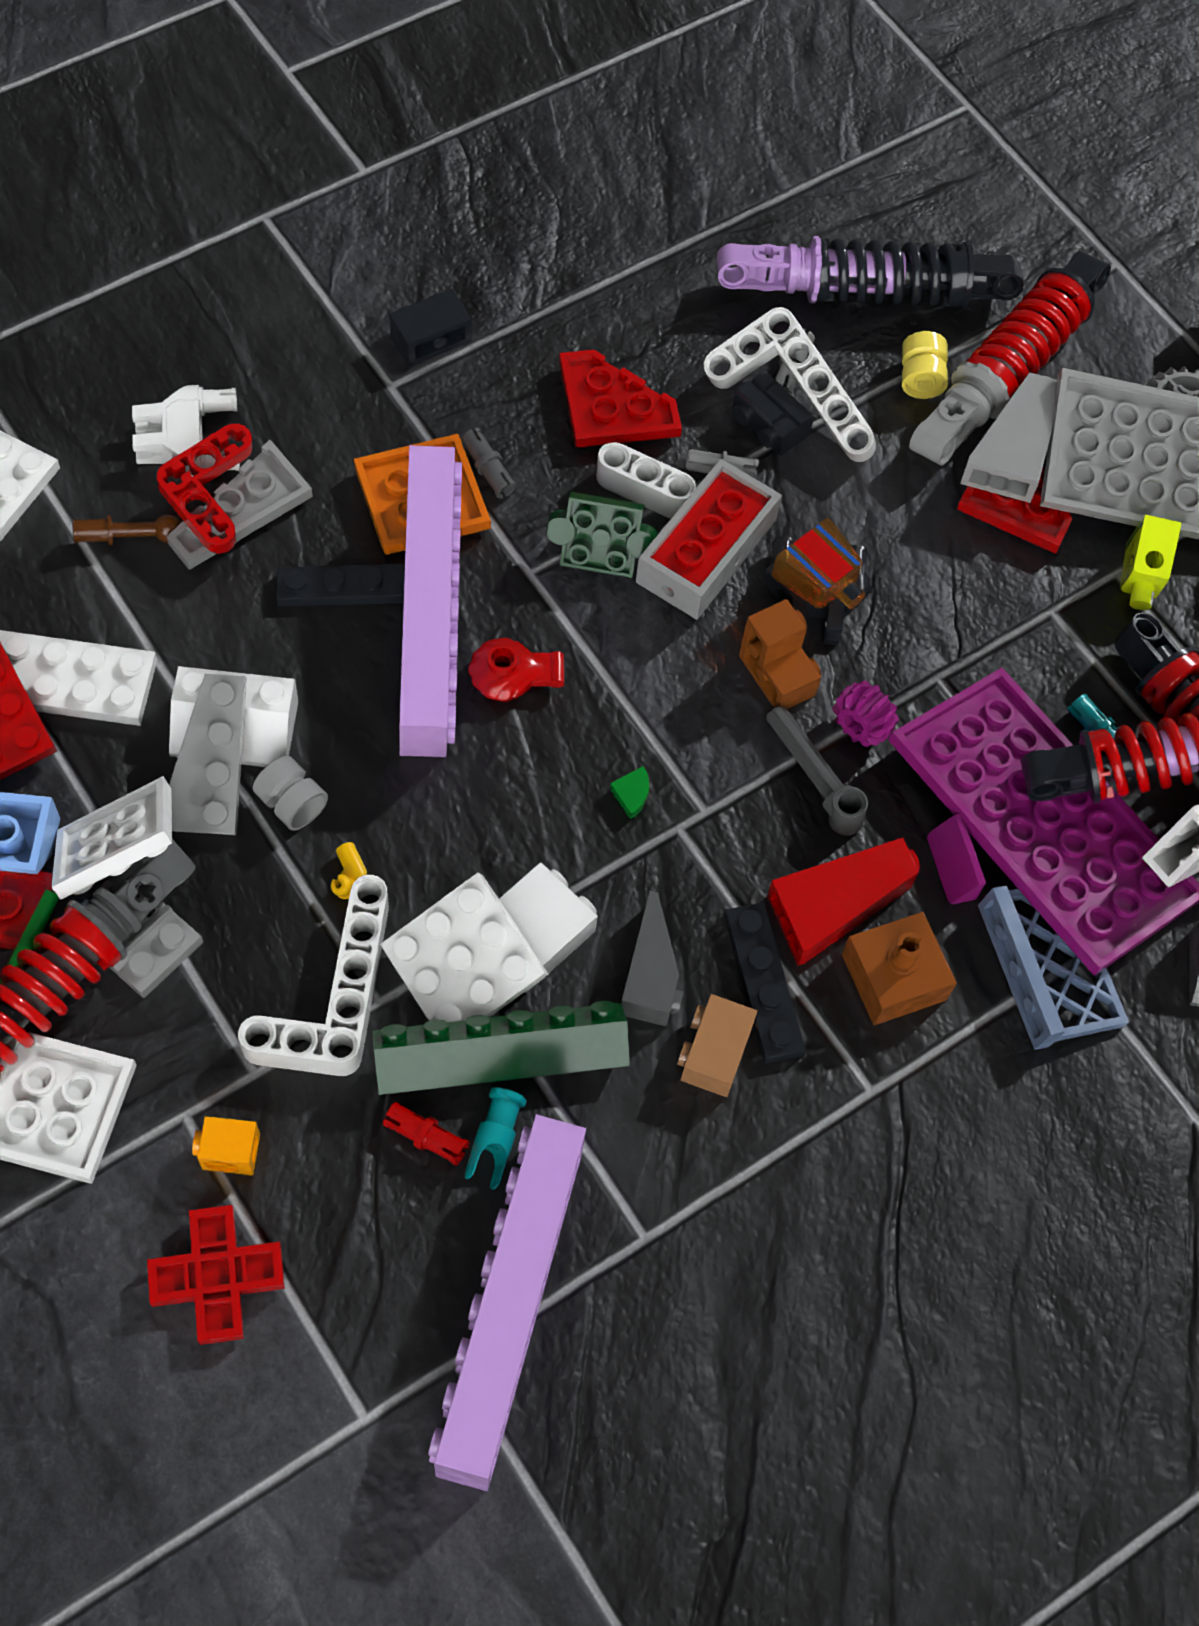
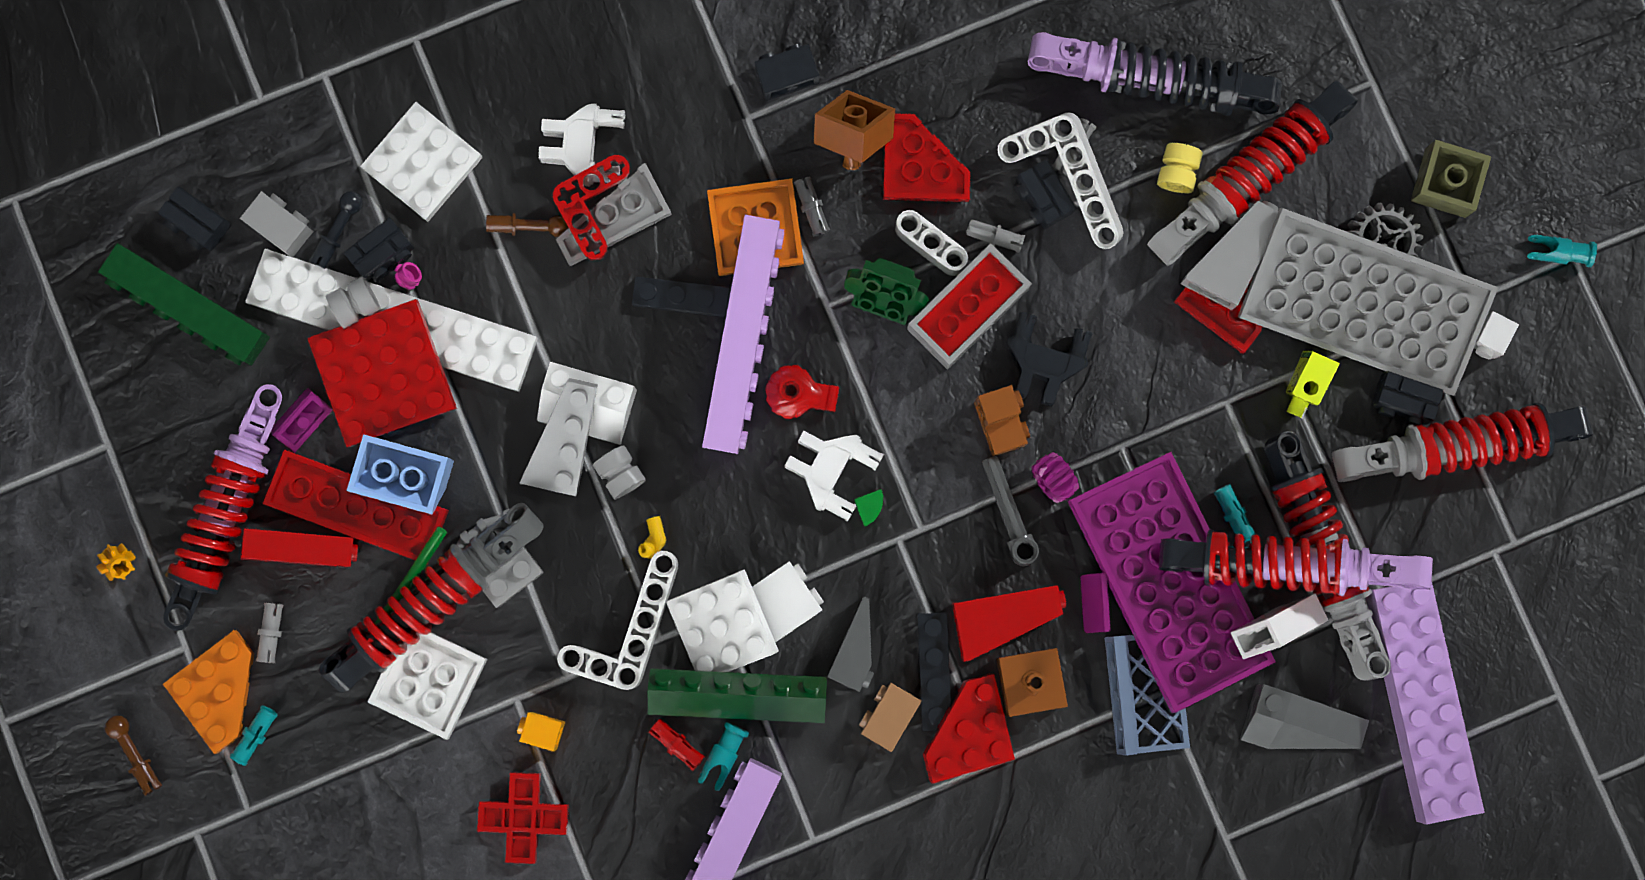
camera: 15 degrees right, 20 degrees up
(113, 838) = (487, 497): white plate -> none
(525, 362) = (854, 127): none -> dark orange brick
(567, 749) = (828, 466): none -> white connector
(821, 567) = (1048, 354): clear orange torso -> none
(832, 1048) = (970, 733): none -> red plate

